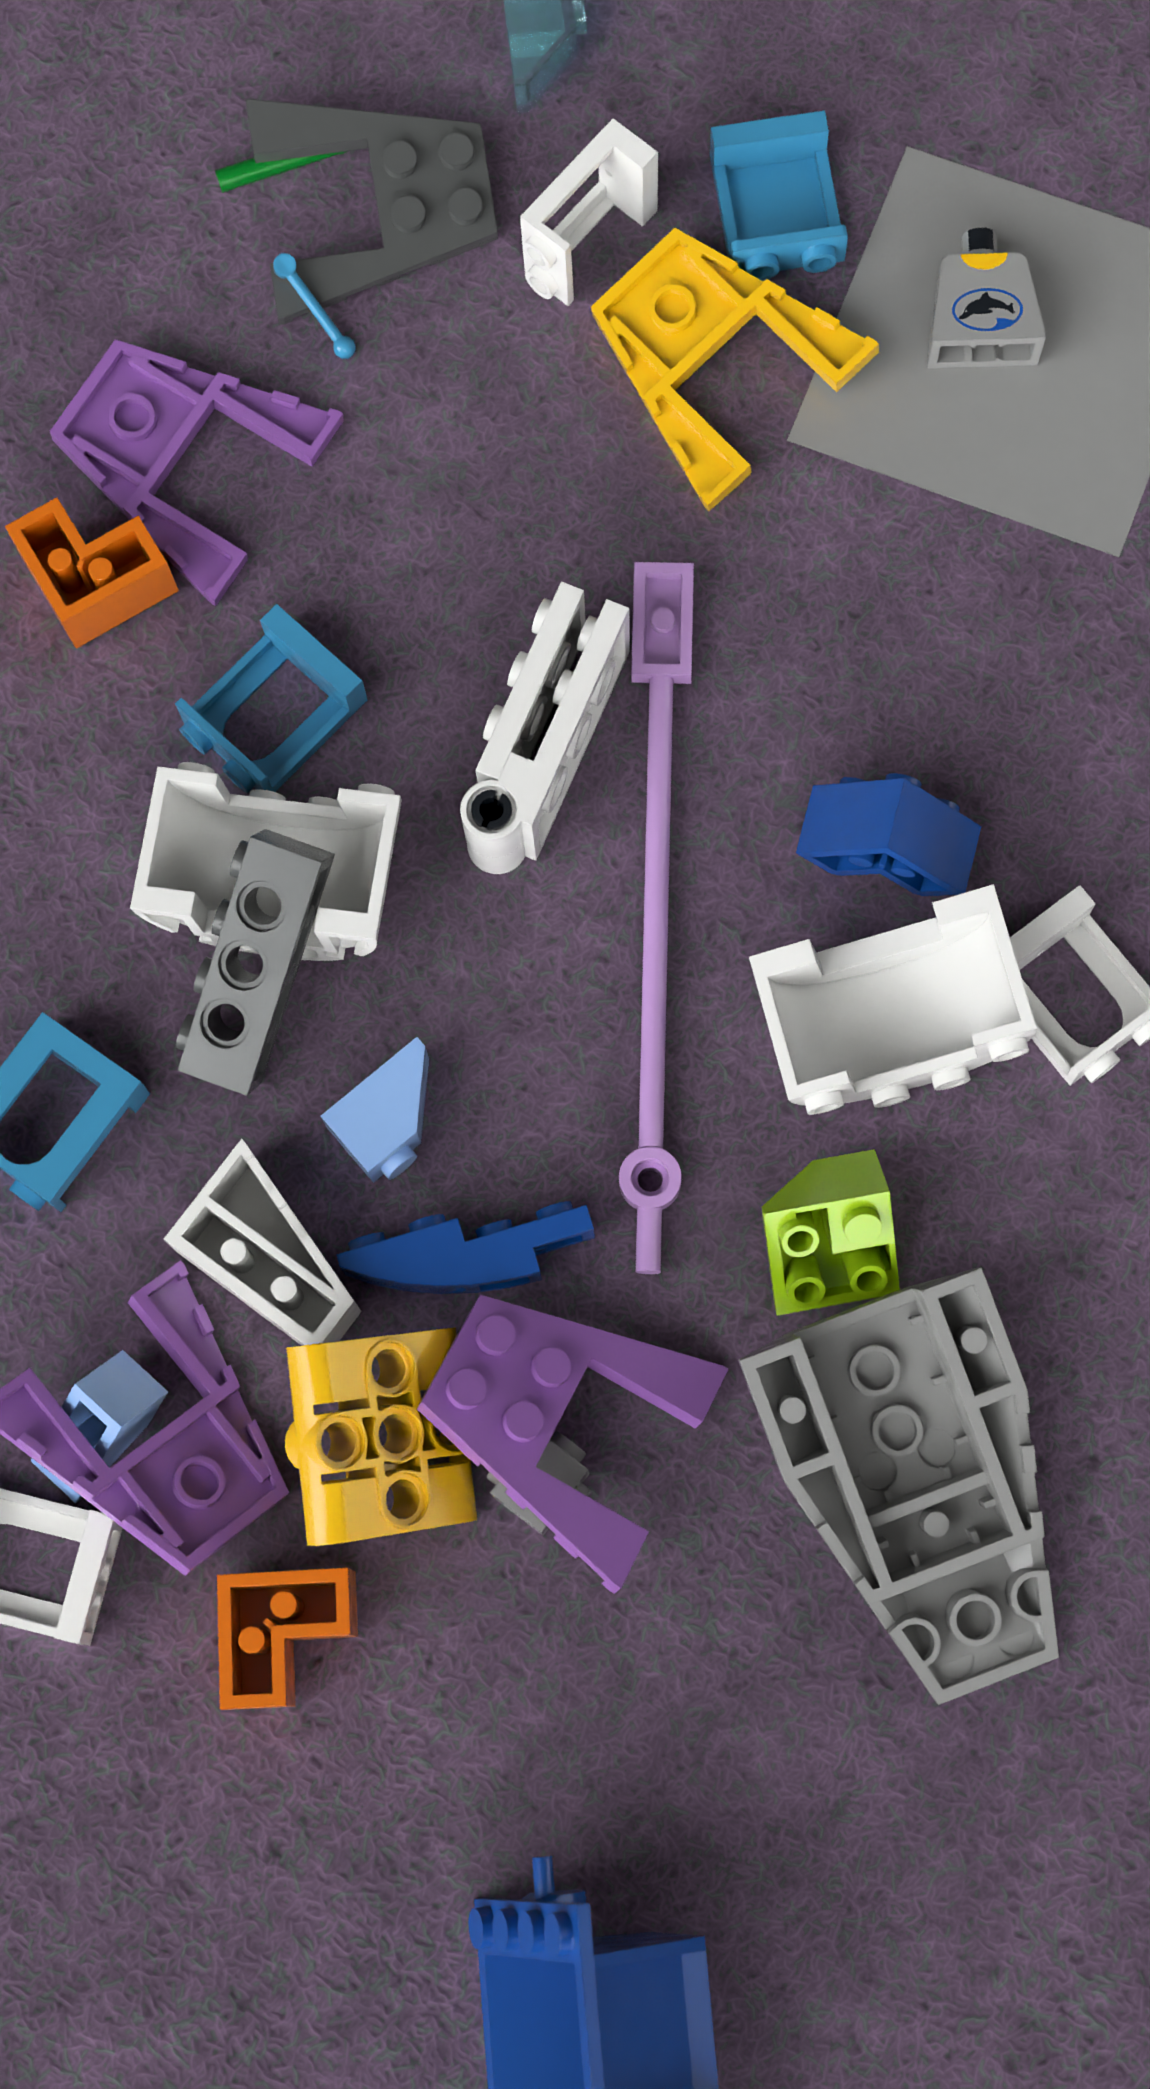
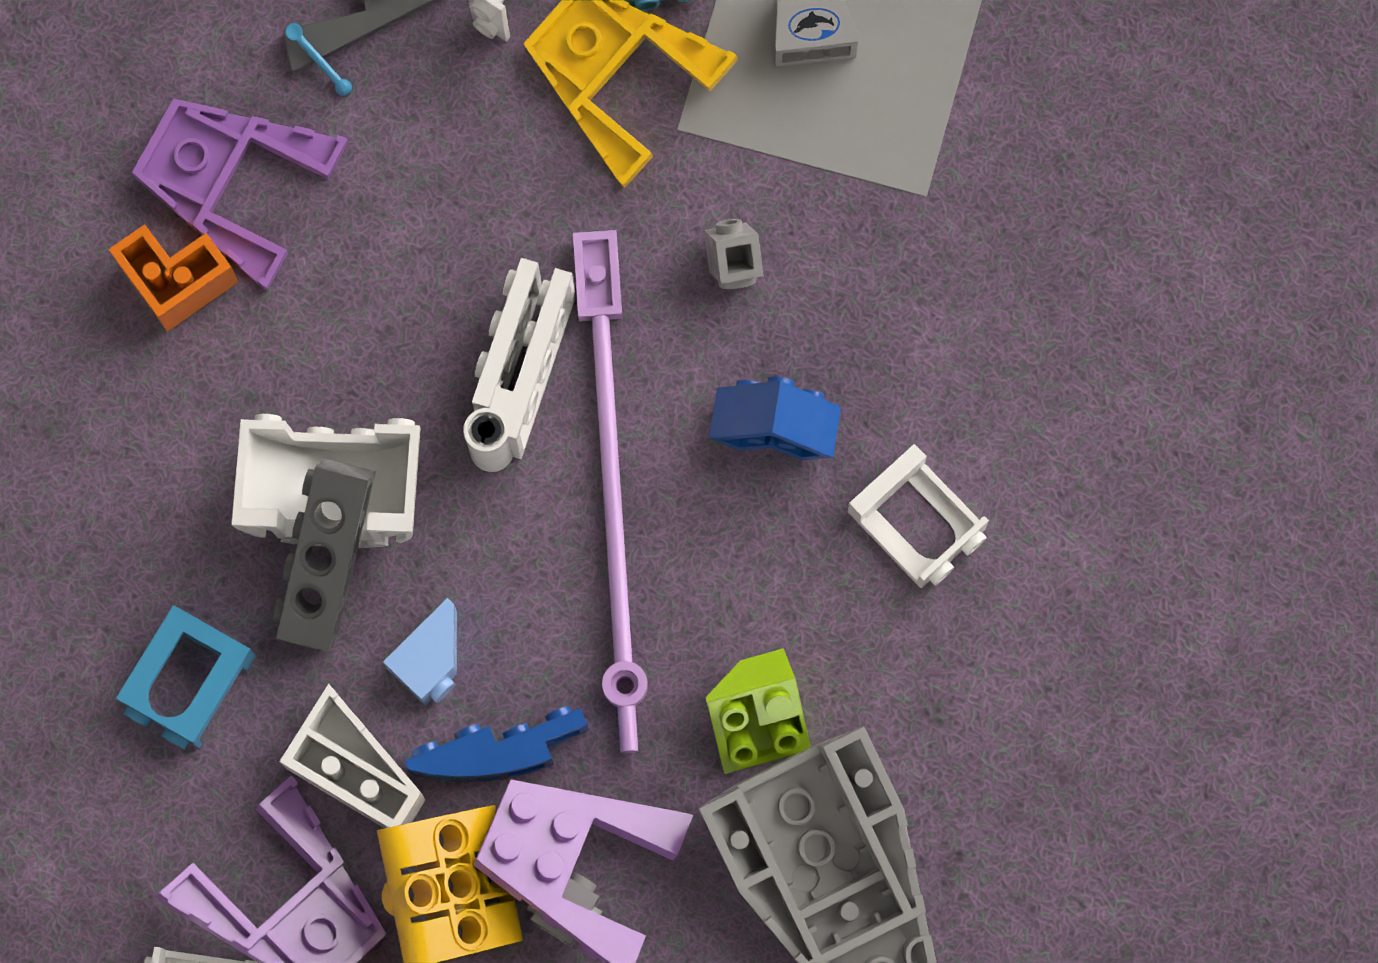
camera: 10 degrees left, 0 degrees up
(111, 1409) = (252, 887): light blue slope -> none
(282, 642) = (318, 313): dark azure panel -> none
(851, 607) = (733, 254): none -> light grey brick
(896, 1007) = (788, 545): white cylinder -> none

